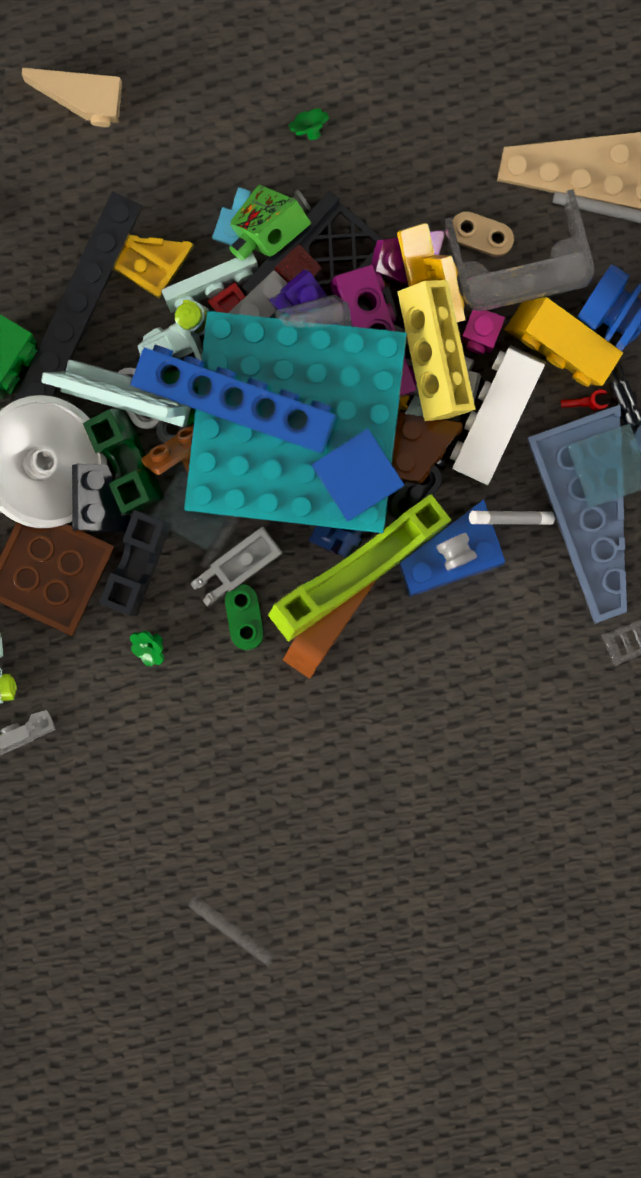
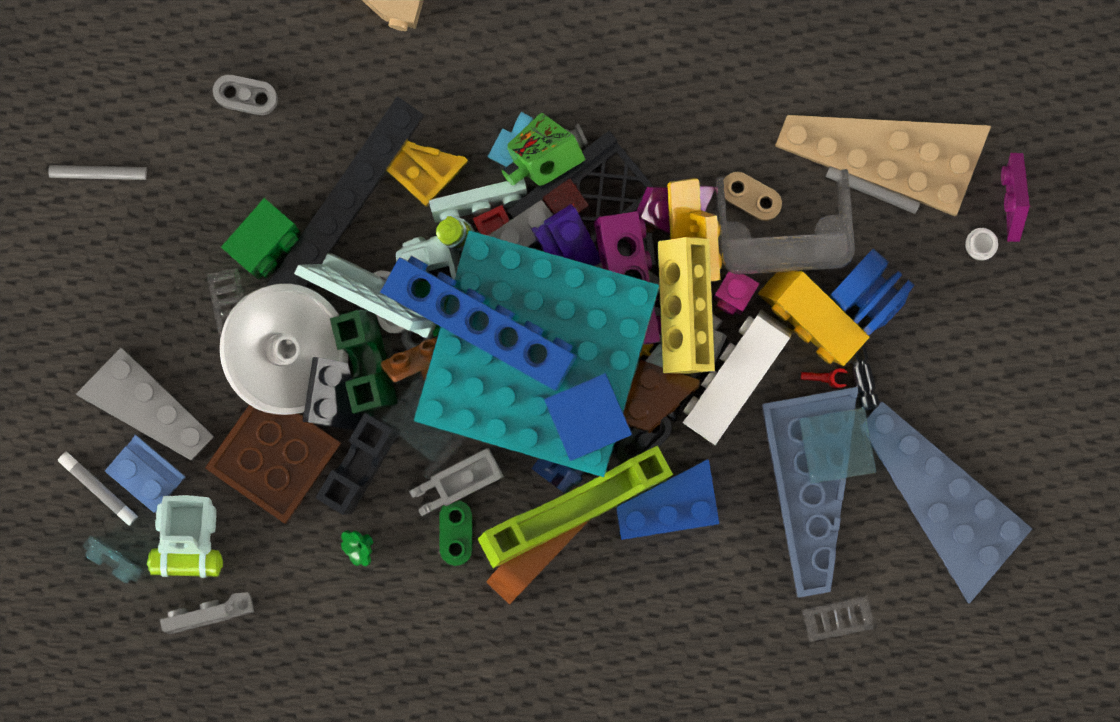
camera: 15 degrees right, 0 degrees up
(309, 123) = (601, 60): green plant -> none
(316, 313) = (575, 250): clear slope -> none
(456, 551) = (672, 507): light grey wheel -> none
(512, 517) = (732, 481): light grey bar -> none

